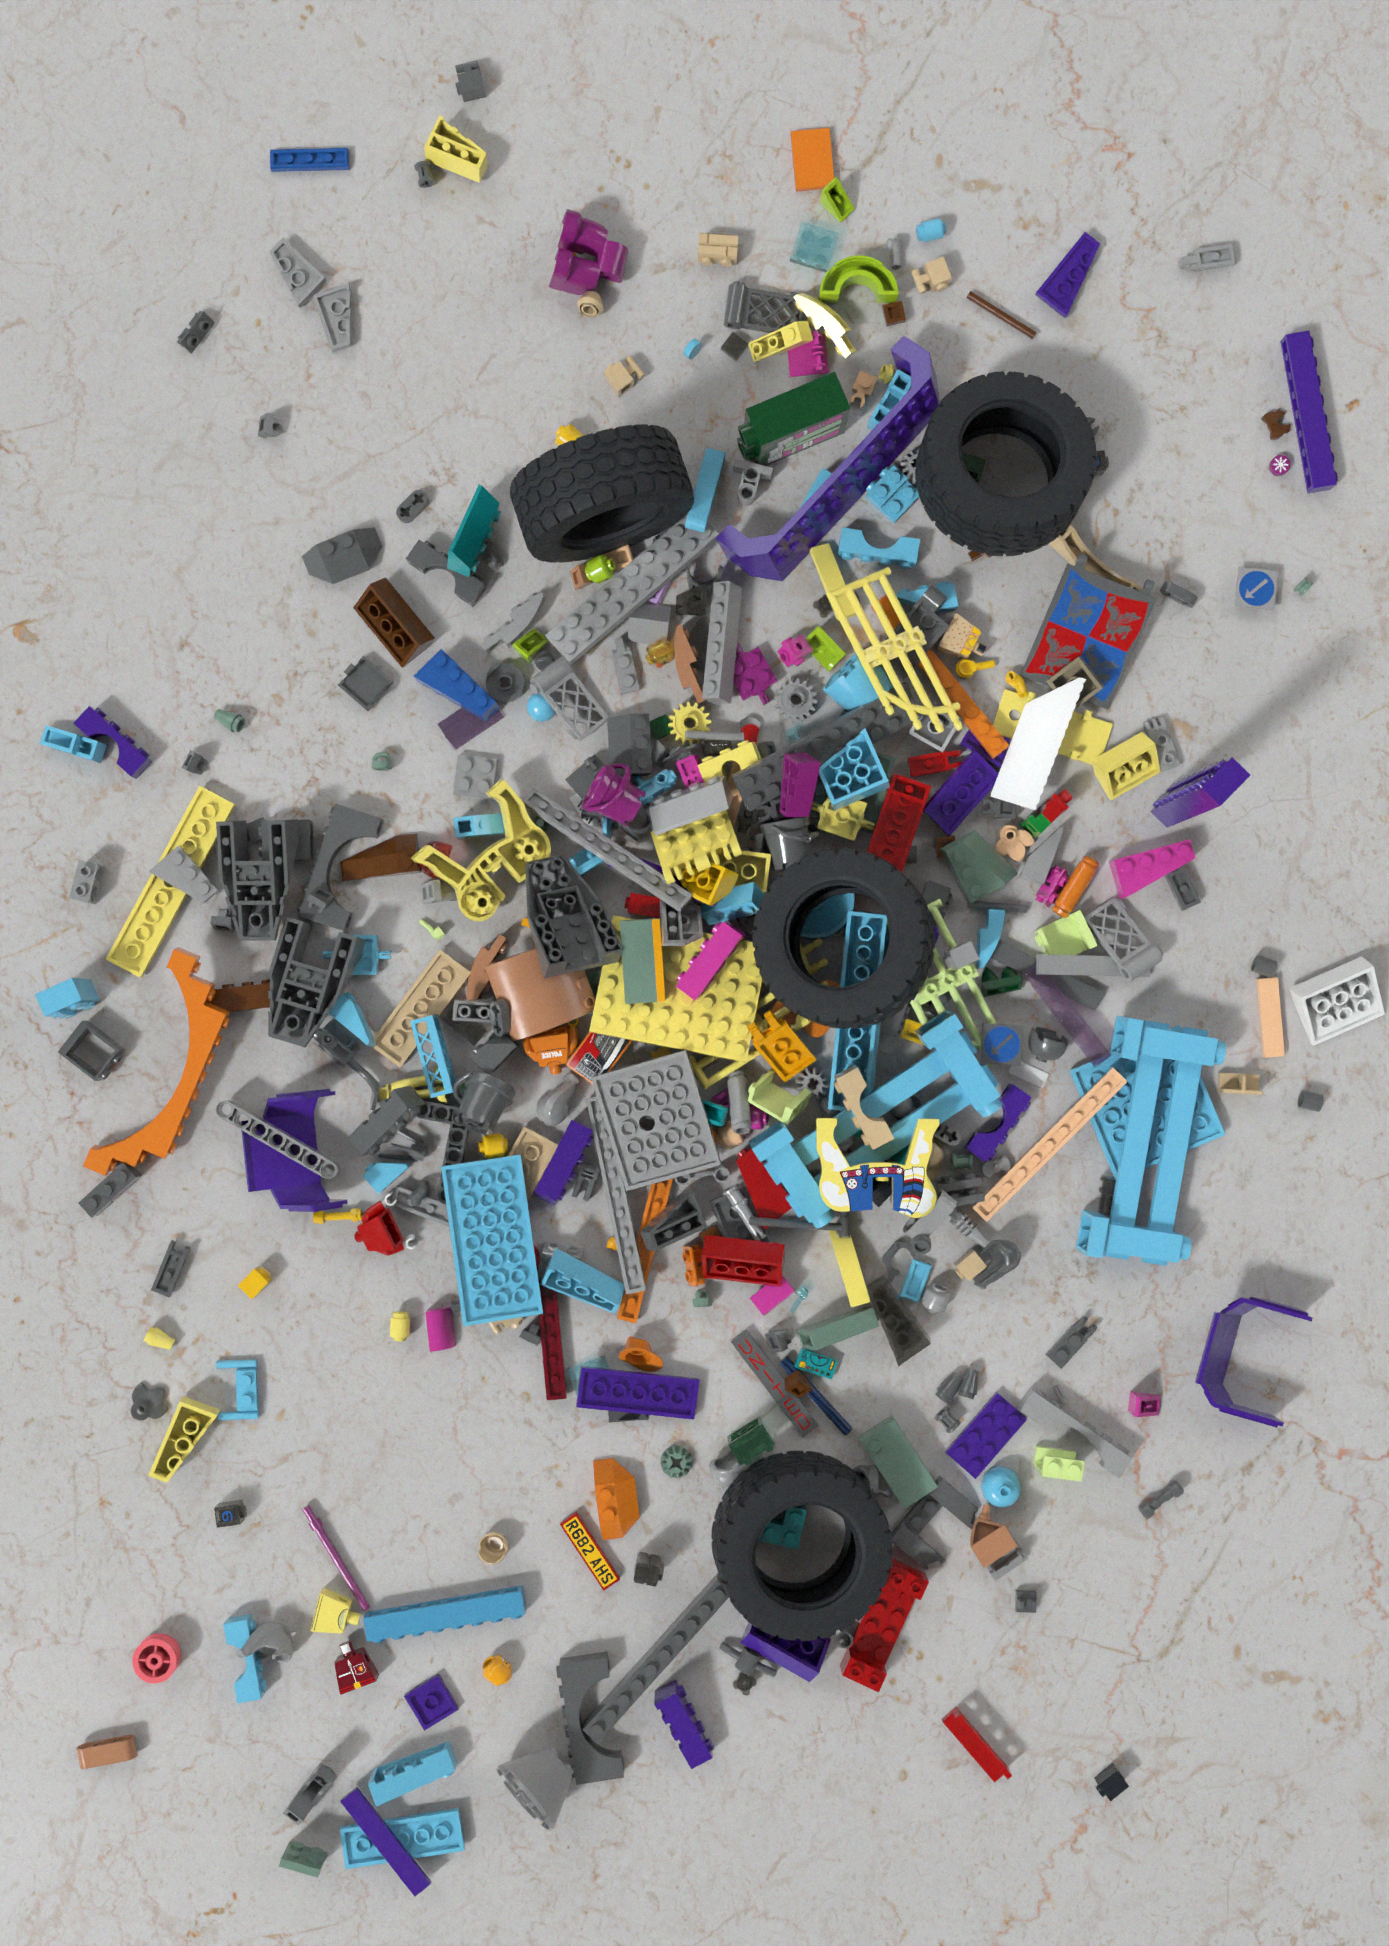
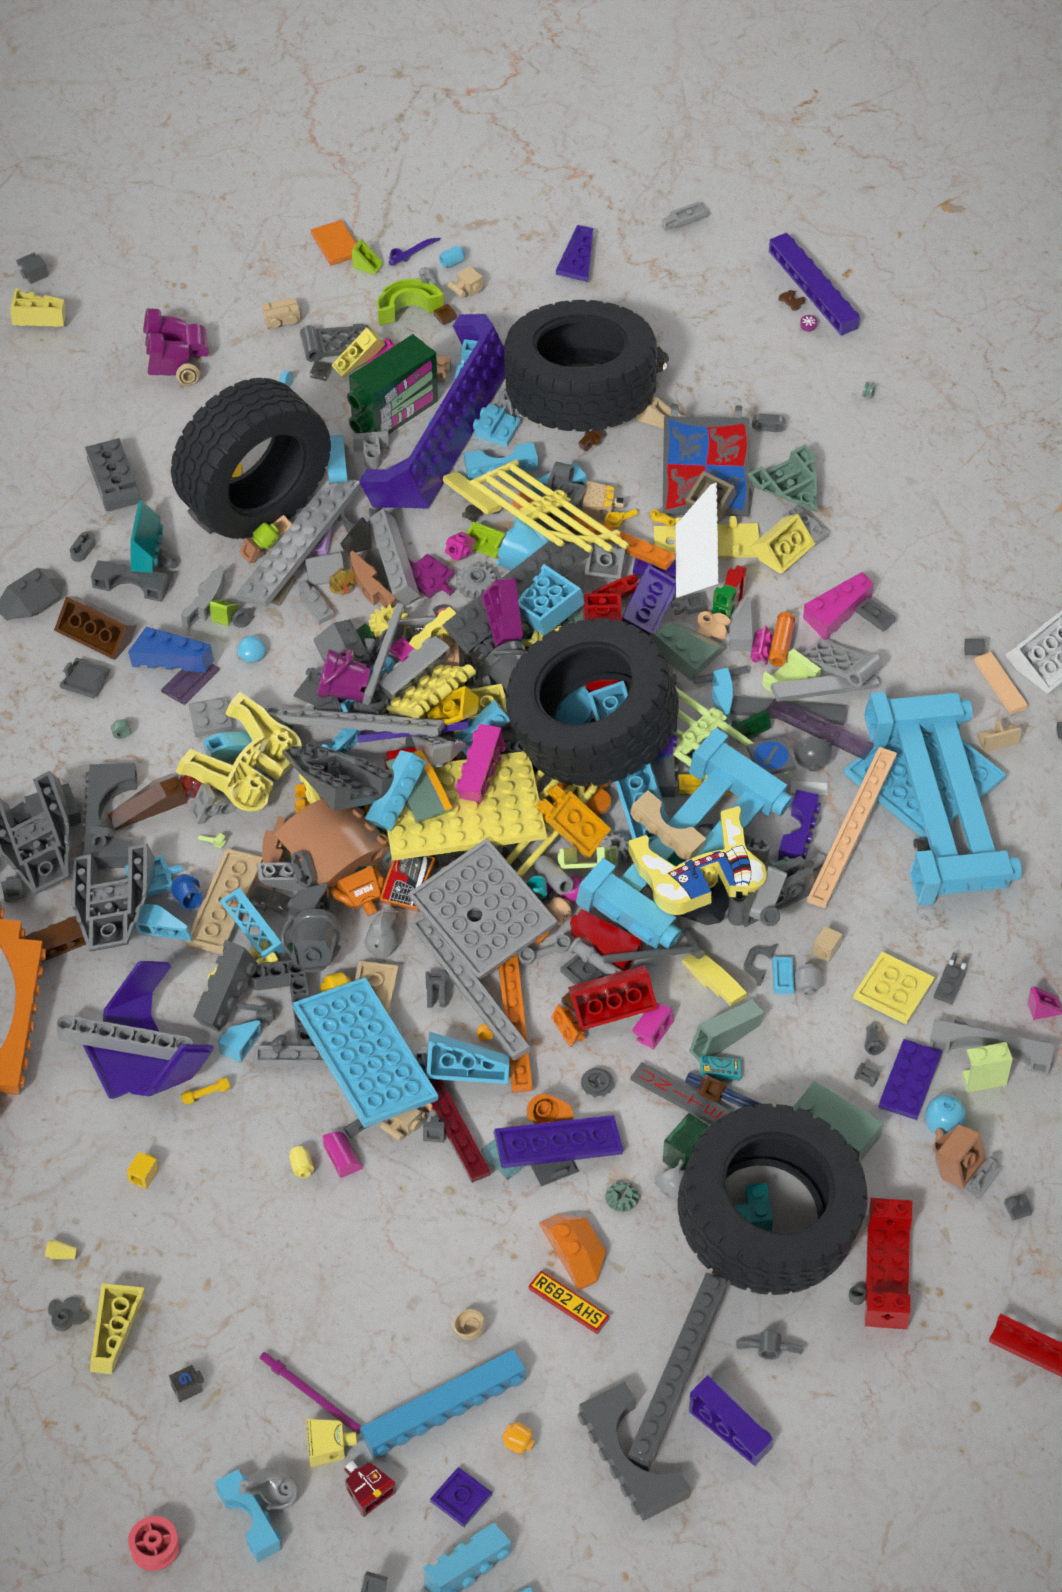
camera: 15 degrees left, 35 degrees down
(170, 1270) = (52, 1188): dark grey hinge -> none
(245, 1389) = (165, 1271): medium azure plate -> none
(342, 1055) = (146, 951): dark grey piece -> none
(380, 1230) = (252, 1083): red torso -> none
(385, 988) = (186, 890): none -> blue piece
(425, 174) = (13, 332): dark grey bush -> none
(477, 453) = (112, 474): none -> dark grey hinge
(516, 682) = (216, 633): dark grey plate -> none
(538, 1783) = (598, 1522): light grey cone -> none
(550, 680) = (257, 622): light grey piece -> none
(563, 1162) = (408, 979): dark purple wedge -> none
(632, 953) = (406, 773): none -> medium azure arch
(648, 1569) = (633, 1287): clear smoke brick -> none
(664, 779) = (383, 653): none -> light grey tile
(674, 1222) = (535, 987): dark grey wedge -> none
(700, 1345) = (590, 1077): none -> dark grey gear
(702, 1302) = (588, 1050): sand green tile -> none
(738, 1684) = (773, 1374): clear smoke plate -> none
(776, 1340) = (674, 1060): dark grey tile -> none
(797, 1656) = (800, 1316): dark purple slope -> none
(802, 1294) = (681, 1017): clear light blue hand -> none
(814, 247) = (360, 292): clear light blue plate -> none
(820, 316) = (386, 328): slope -> none
(879, 206) = (400, 255): none -> dark purple sword
(886, 373) = (455, 351): light yellow plate -> none
(898, 1322) = (782, 1006): clear smoke wedge -> none
(906, 1532) = (894, 1140): dark grey wedge -> none
(948, 1388) = (855, 1051): dark grey cone -> none
(960, 956) = (703, 696): light grey brick -> none
(968, 1227) = (810, 916): light grey hinge -> none
(1001, 315) = (533, 293): reddish brown bar -> none
(1003, 1257) = (855, 927): dark grey piece -> none
(1012, 1335) = (894, 988): none -> light yellow plate
(1168, 686) = (792, 479): none -> sand green wedge
(1199, 792) = (843, 502): dark purple brick -> none
(1256, 588) = (830, 401): piece -> none

